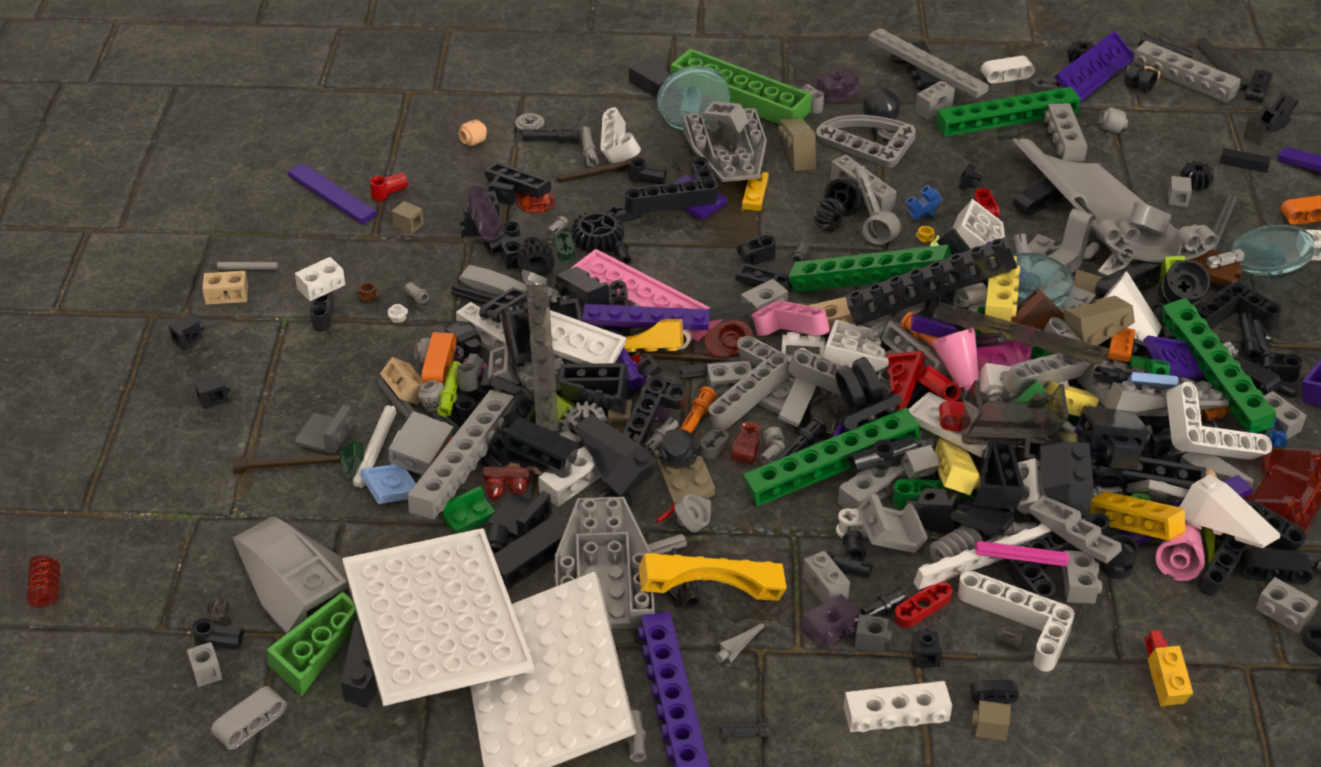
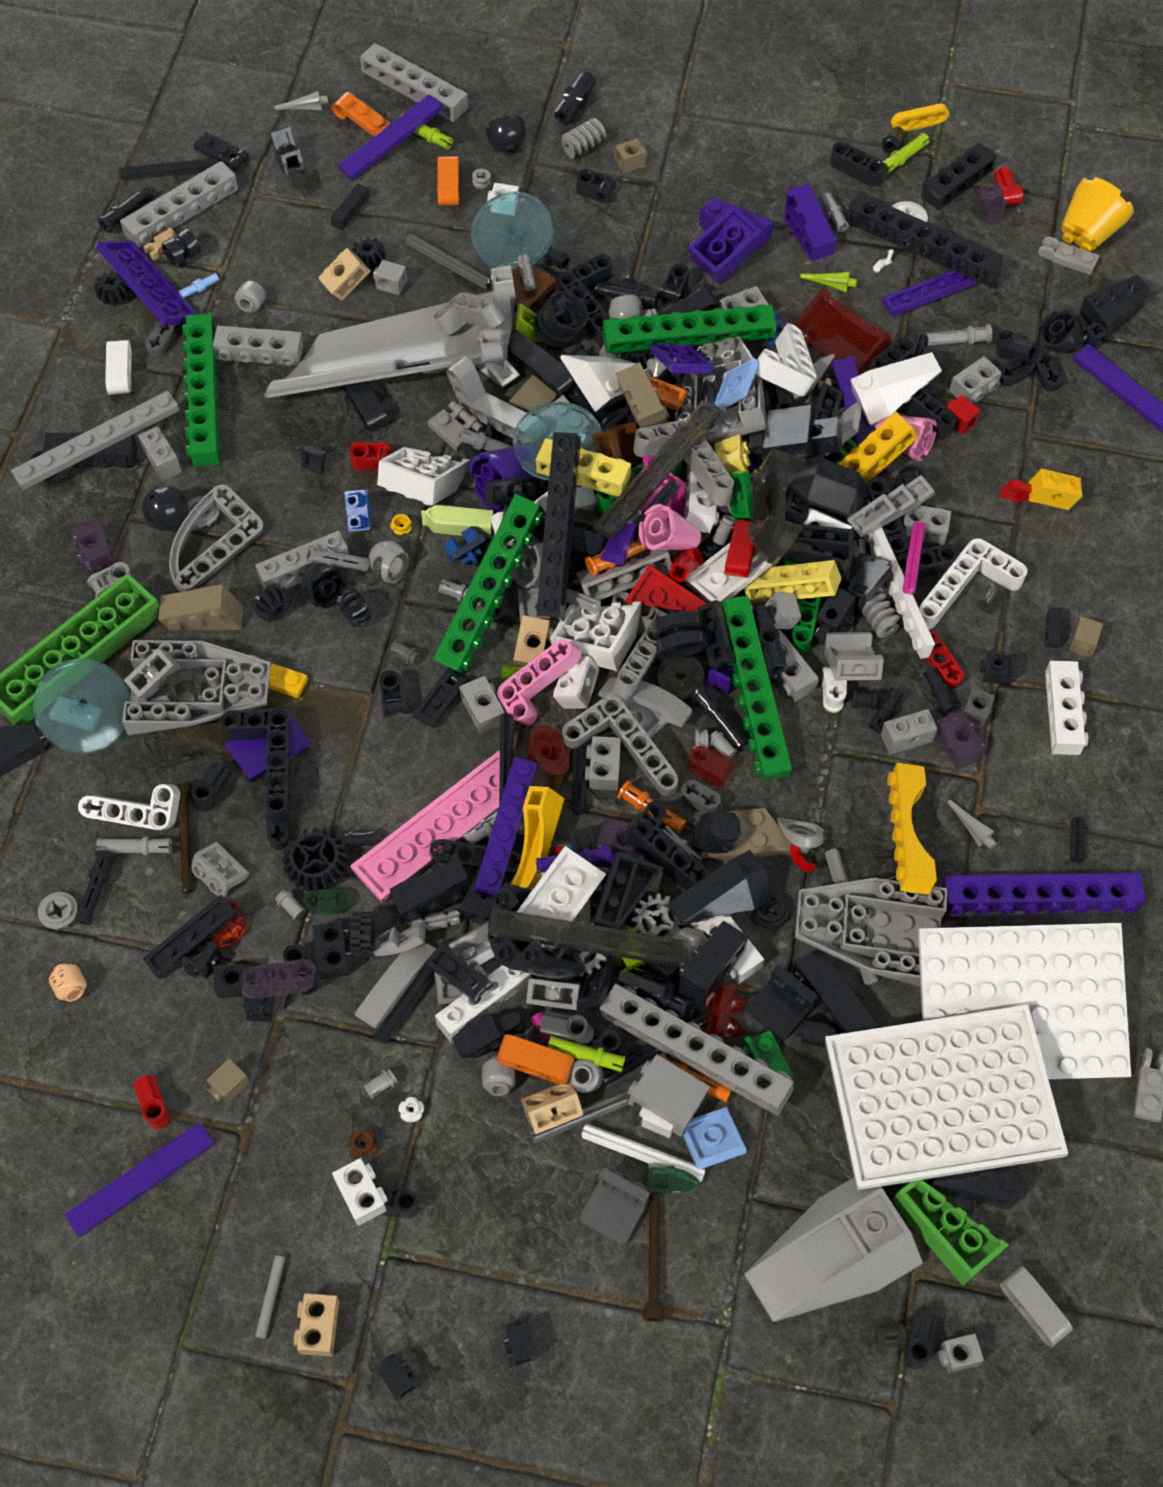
camera: 80 degrees left, 20 degrees up
(579, 186) = (218, 869): none -> light grey bracket
(817, 172) = (271, 602): none -> black gear
(1111, 96) = (199, 285): none -> light blue bar
(1152, 365) = (716, 373): green piece -> none
(1162, 160) = (344, 274): none -> tan brick
(1226, 330) = (625, 307): none -> light grey helmet
(1235, 596) = (965, 413): none -> red brick
(1266, 286) = (560, 259): none -> black pin

